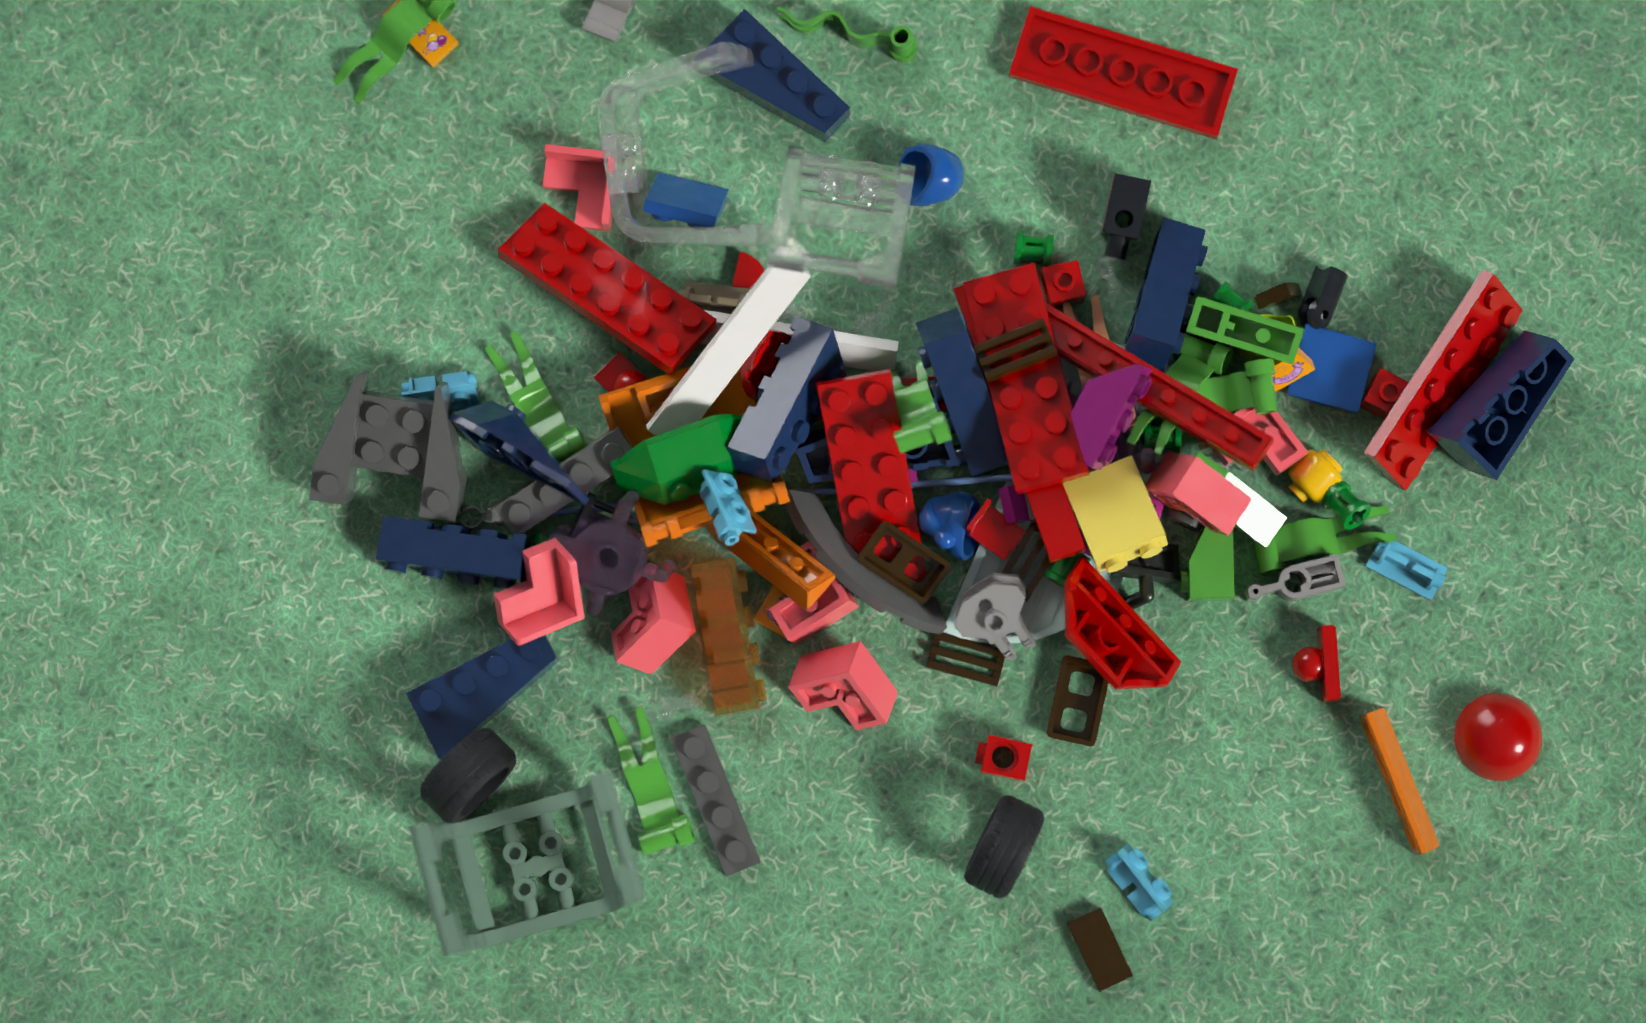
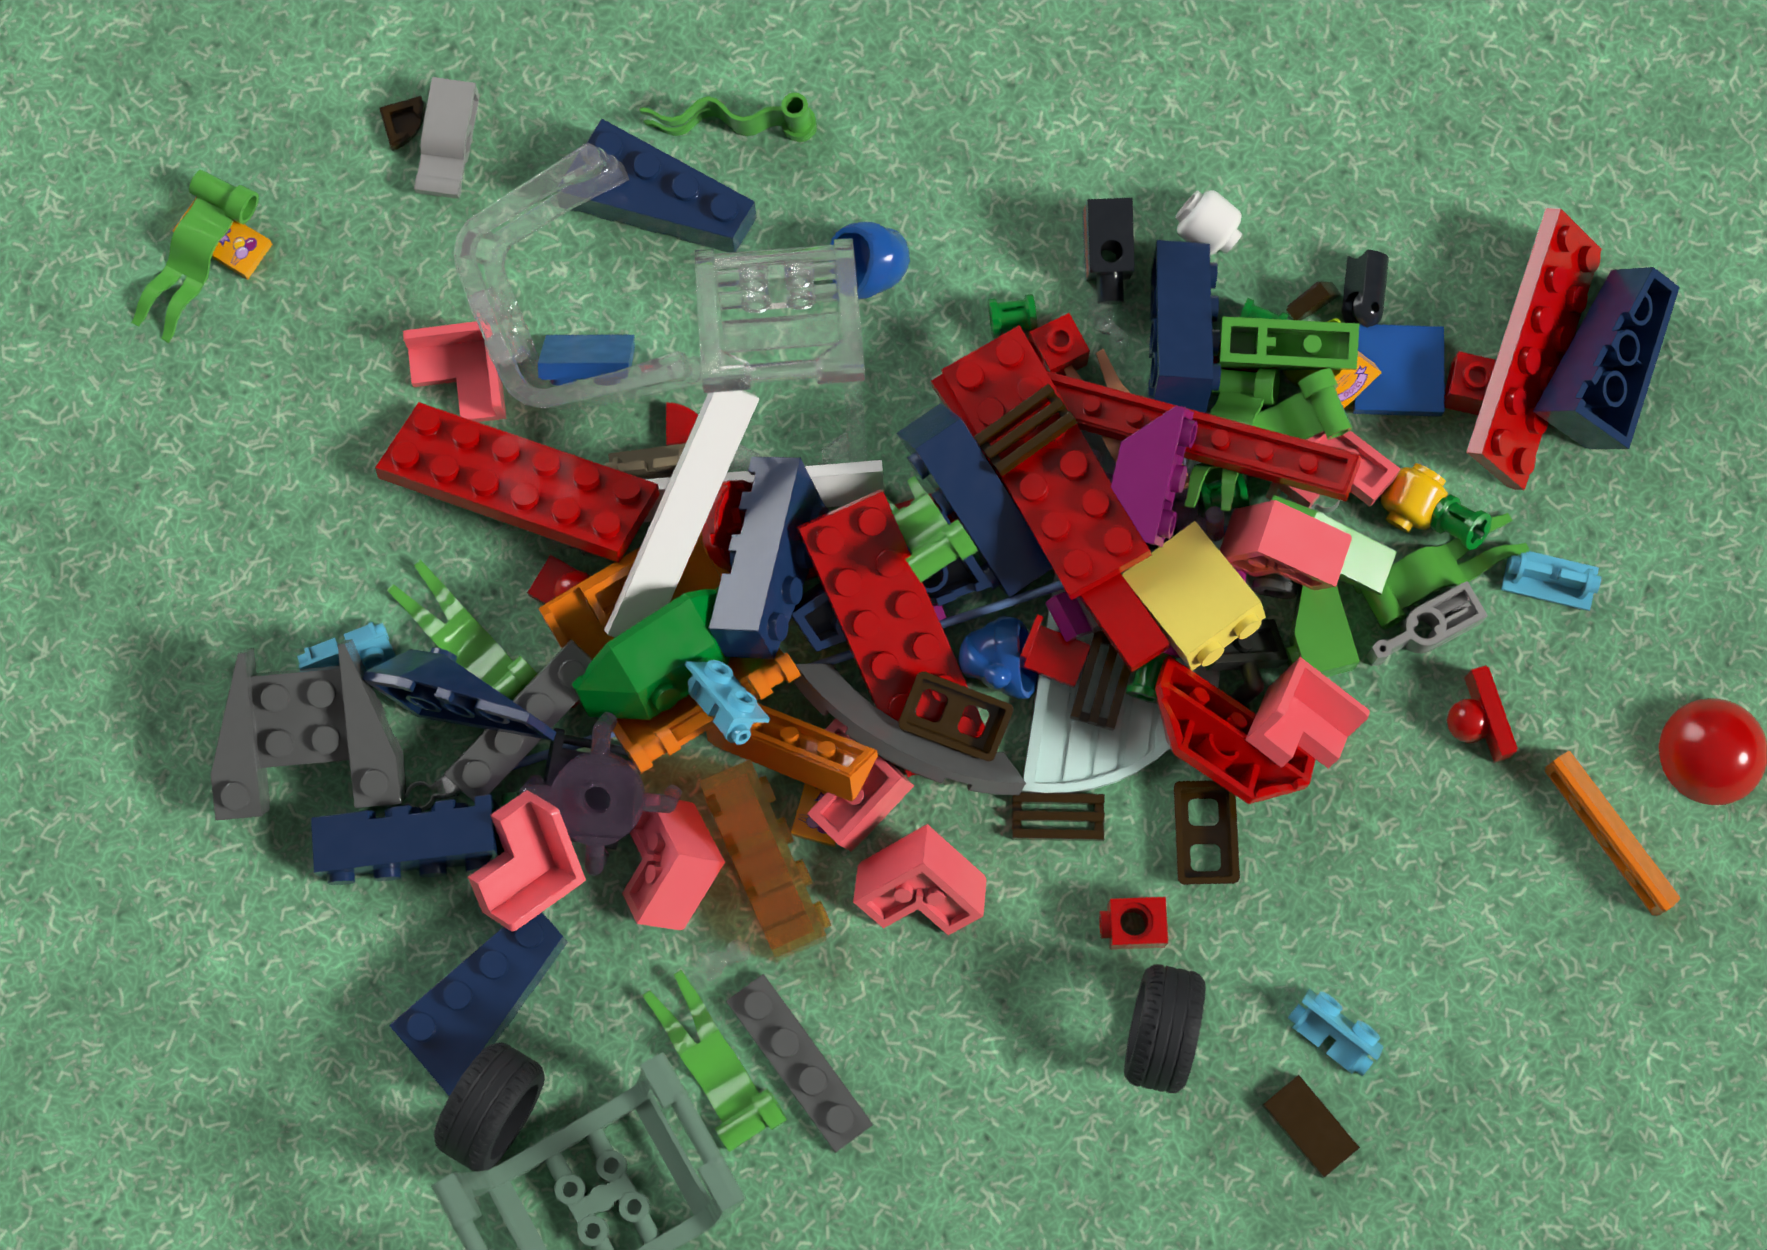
camera: 15 degrees left, 5 degrees down
(996, 616) = (1083, 753): light grey hinge -> none
(1123, 73) = (1064, 90): red plate -> none
(1179, 625) = (1305, 712): none -> coral panel
(1211, 210) = (1209, 220): none -> white head

